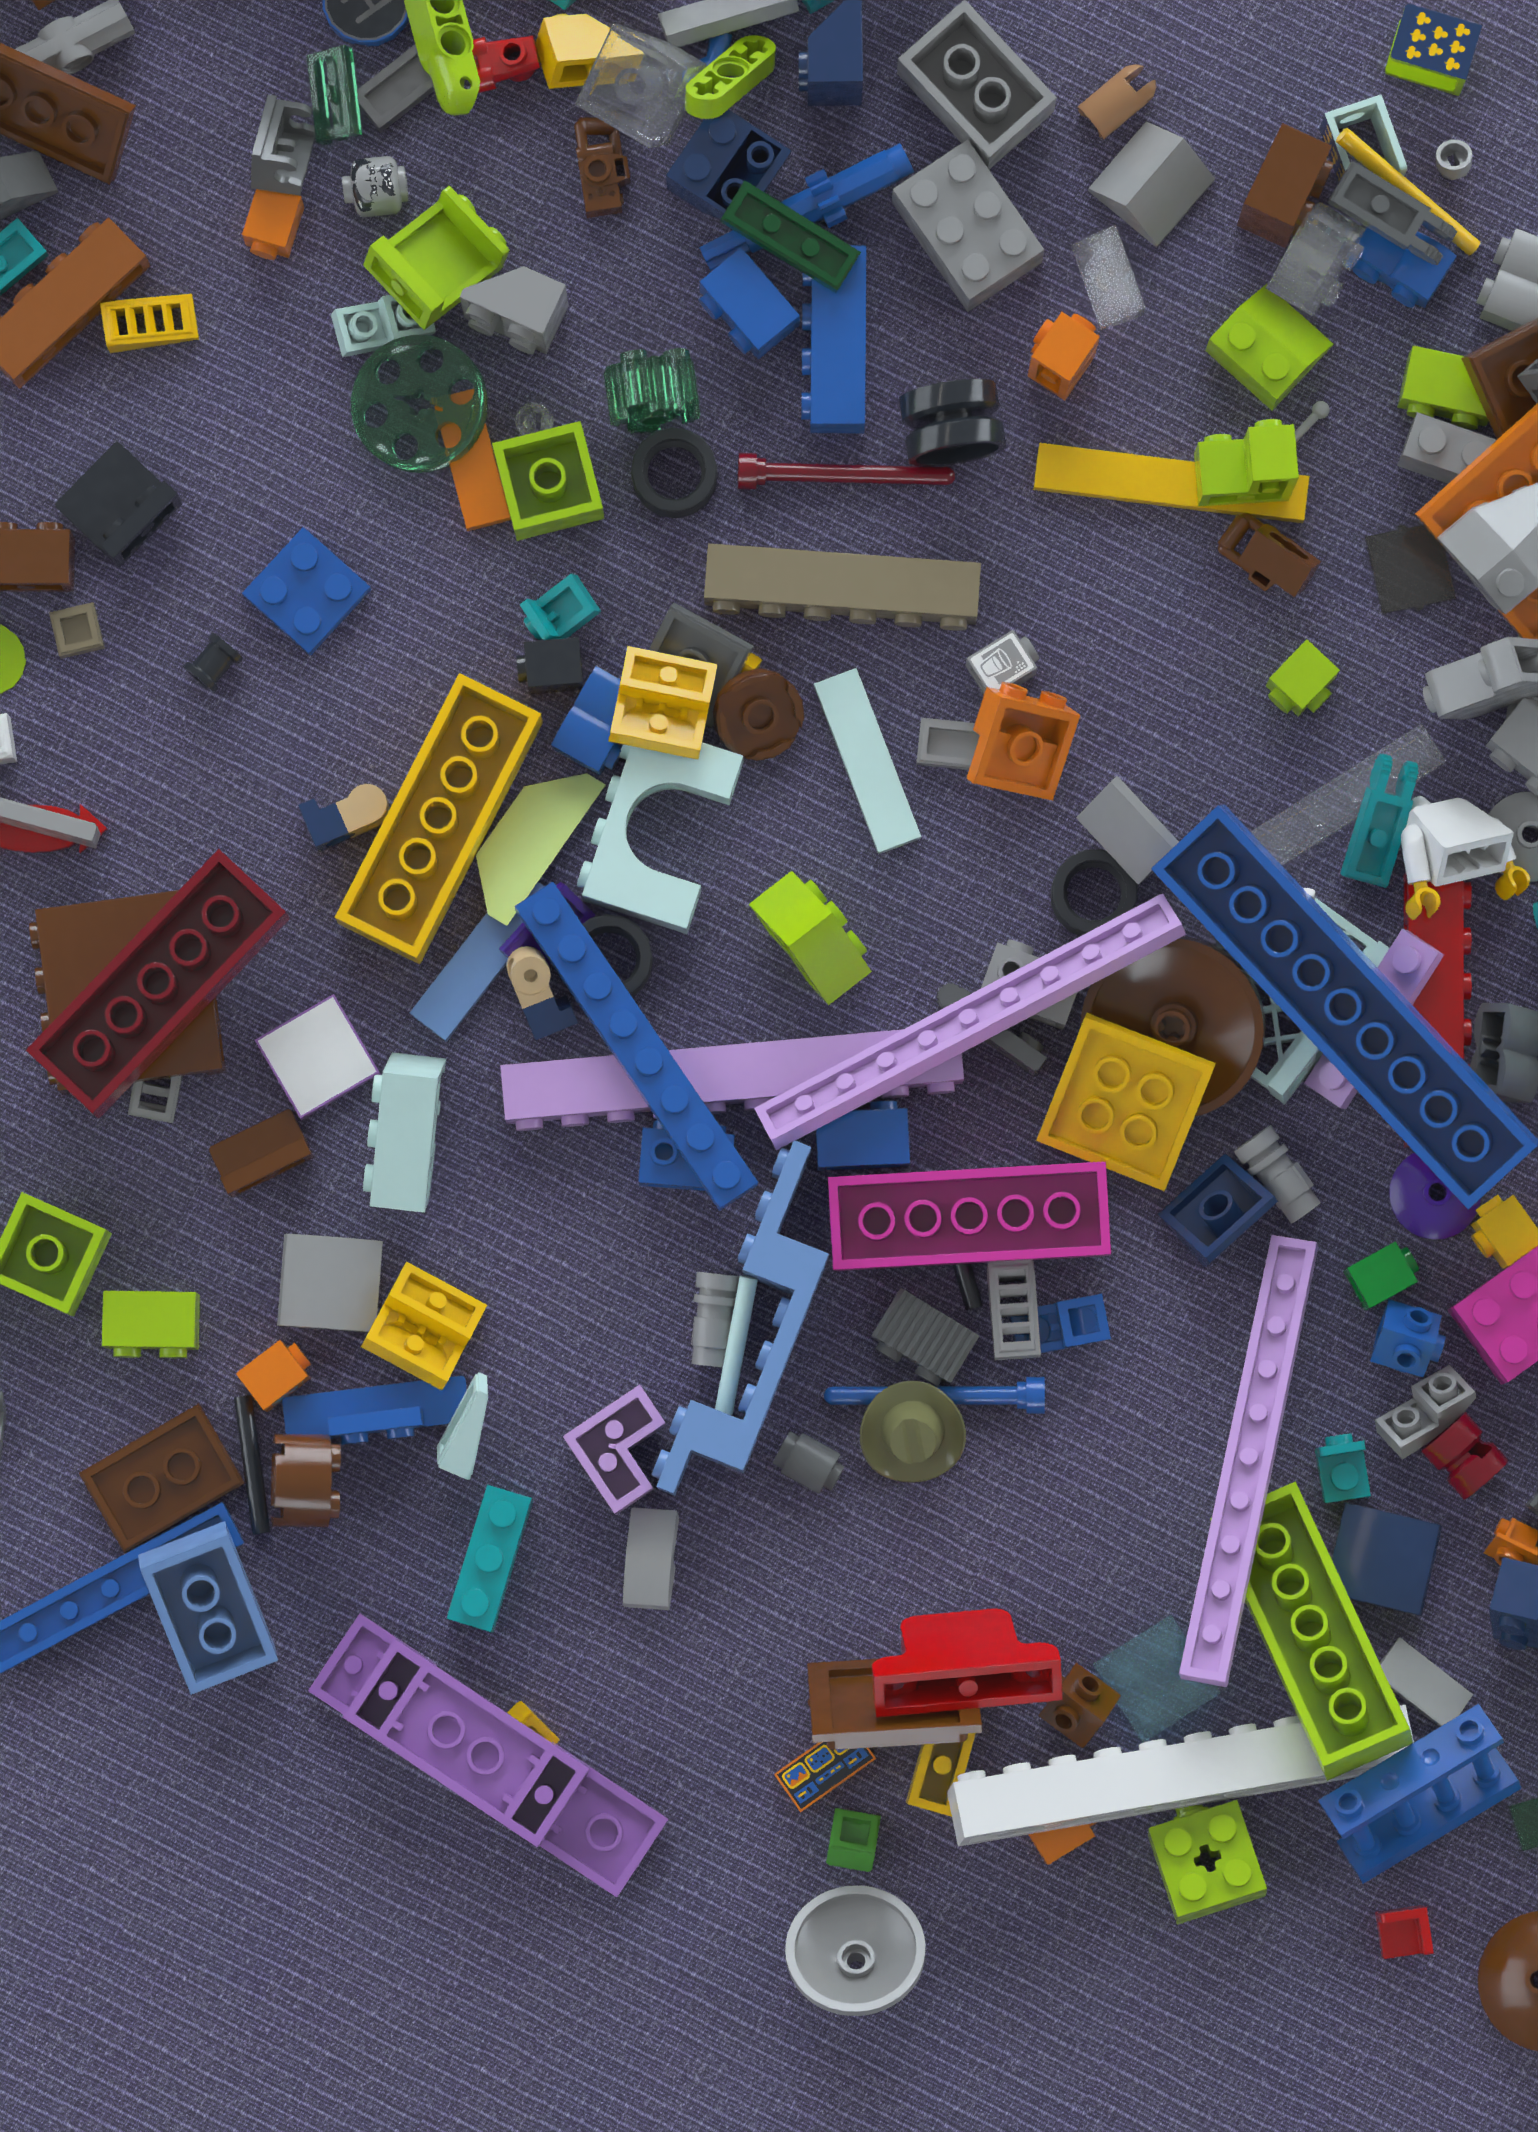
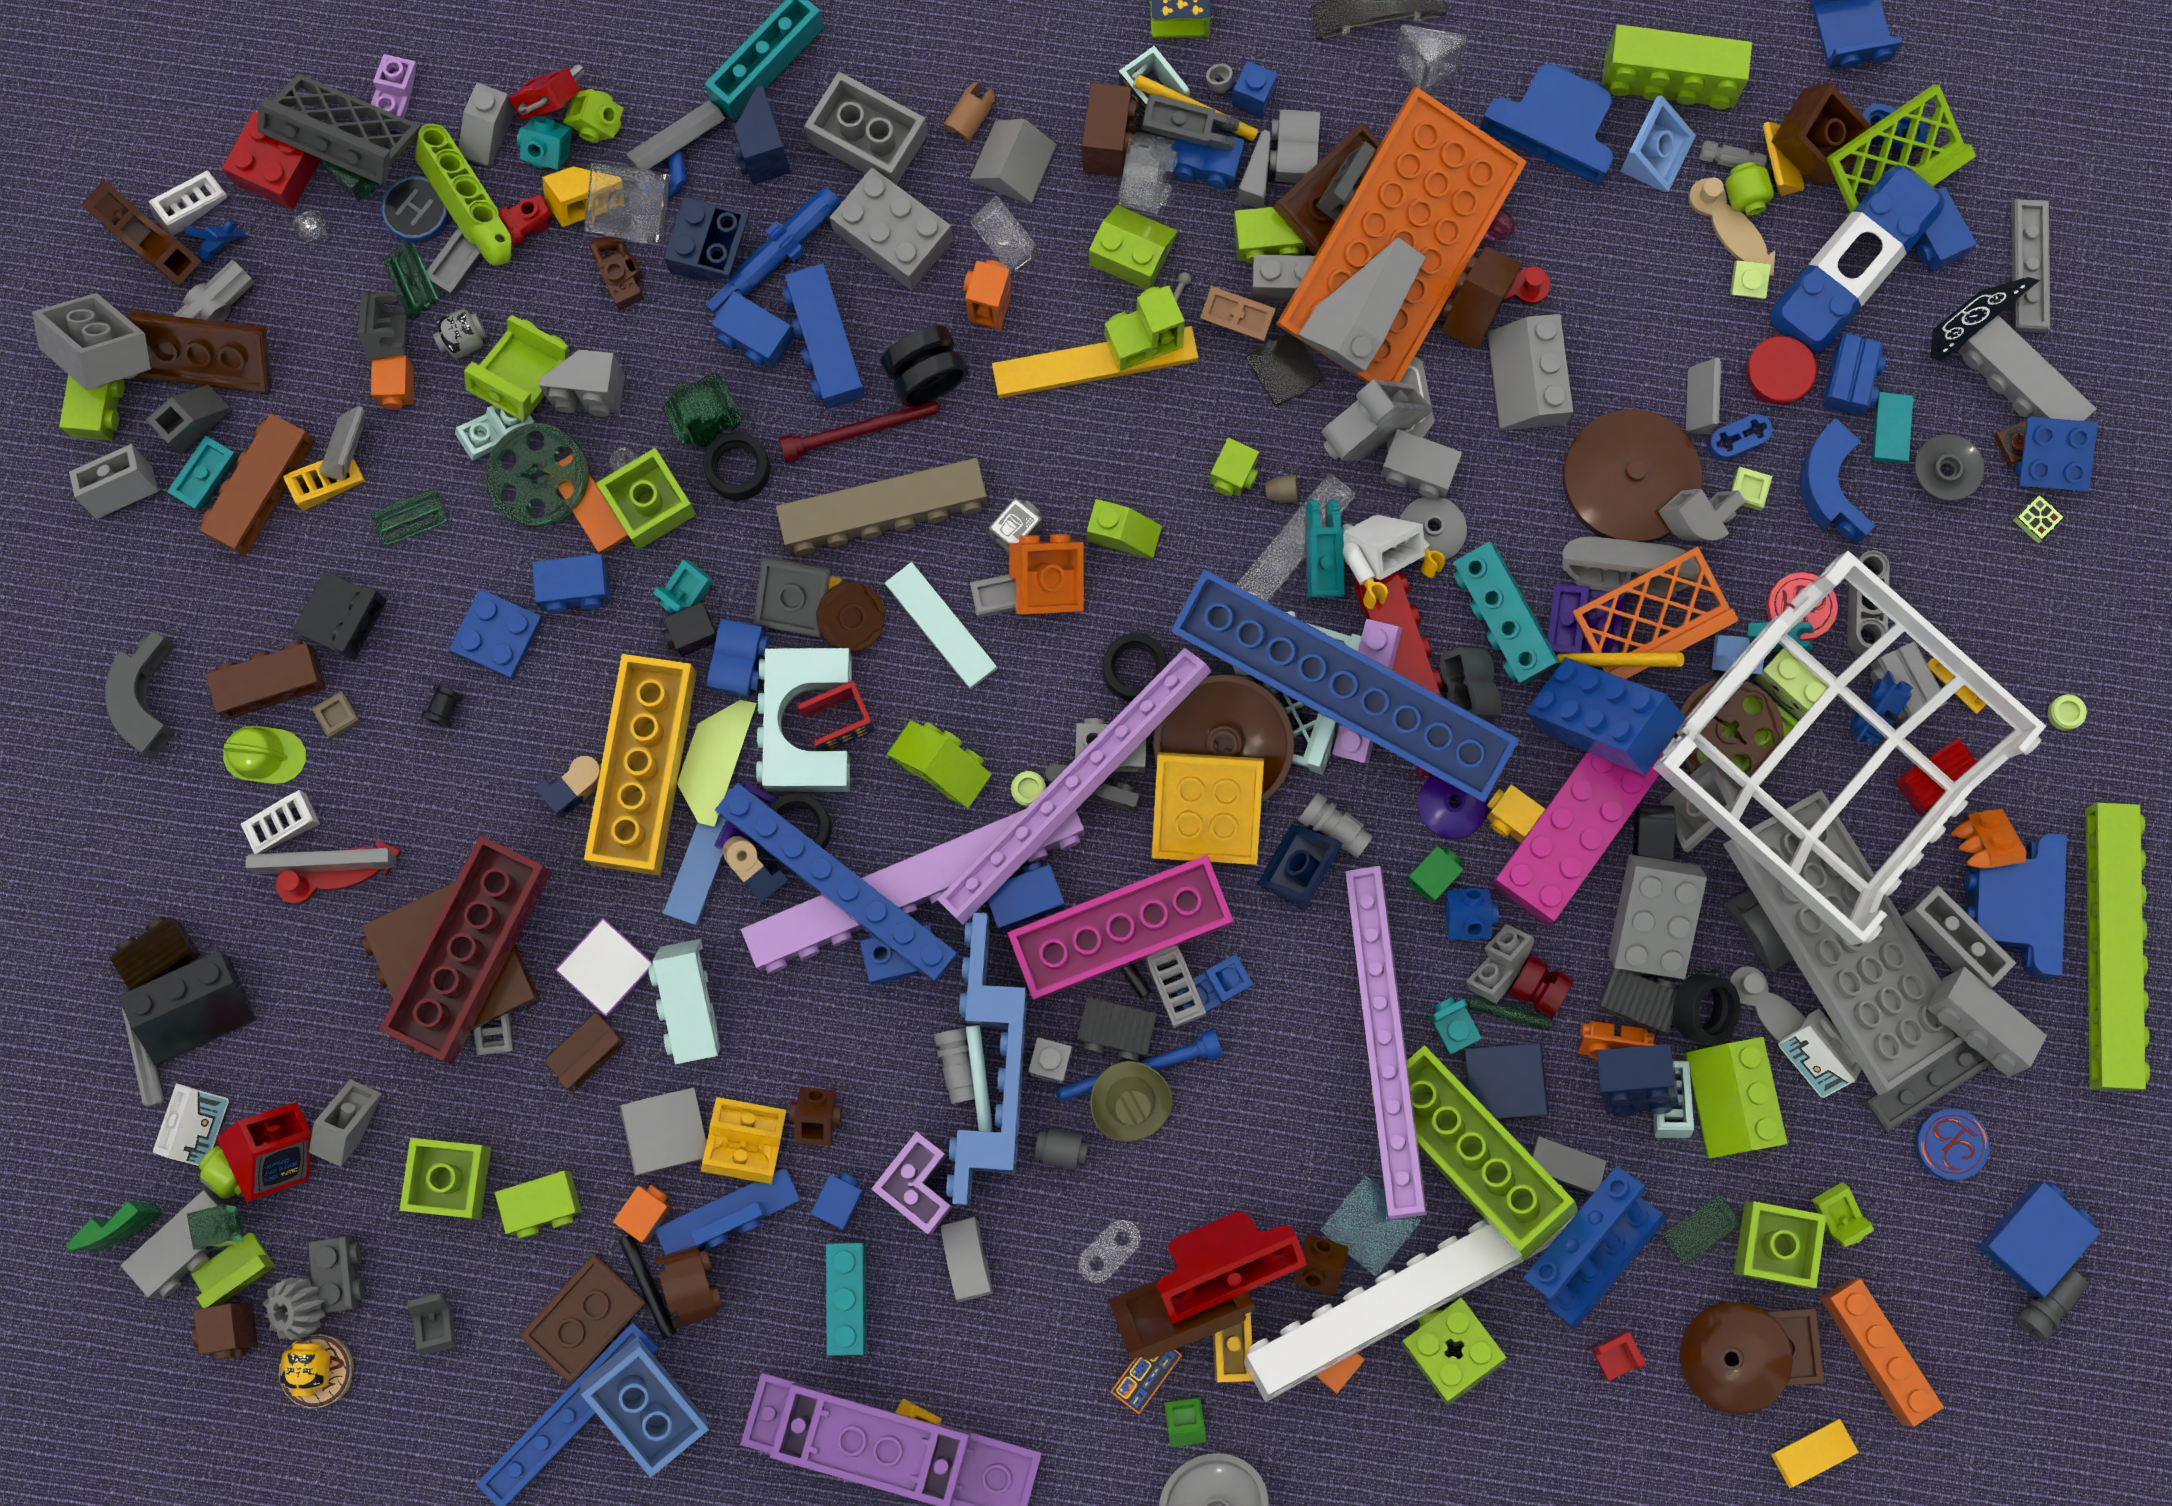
camera: 15 degrees left, 5 degrees down
(186, 284) = (343, 444): none -> light grey slope
(236, 387) = (403, 505): none -> clear green tile
(421, 559) = (571, 583): none -> blue brick
(461, 1438) = (797, 1218): light aqua slope -> none
(517, 1436) = (838, 1200): none -> blue brick
(521, 1325) = (815, 1116): none -> reddish brown brick
(662, 702) = (777, 628): yellow slope -> none
(703, 811) = (829, 700): none -> red piece
(726, 90) = (689, 177): lime beam -> none
(790, 236) = (766, 272): dark green tile -> none
(827, 1604) = (1109, 1251): none -> clear plate
(830, 1350) = (1050, 1060): none -> light grey brick
(910, 1002) = (1027, 787): none -> yellowish green tile
(1127, 829) = (1144, 611): light grey slope -> none
(1136, 713) = (1123, 529): none -> lime slope
(1268, 556) = (1181, 390): reddish brown piece -> none
(1355, 725) = (1283, 489): none -> dark tan hose
(1372, 482) = (1238, 313): none -> medium nougat hinge
(1416, 1475) = (1509, 1012): none -> clear green piece
(1453, 311) = (1254, 182): none -> light grey slope
(1492, 189) = (1254, 89): none -> blue brick

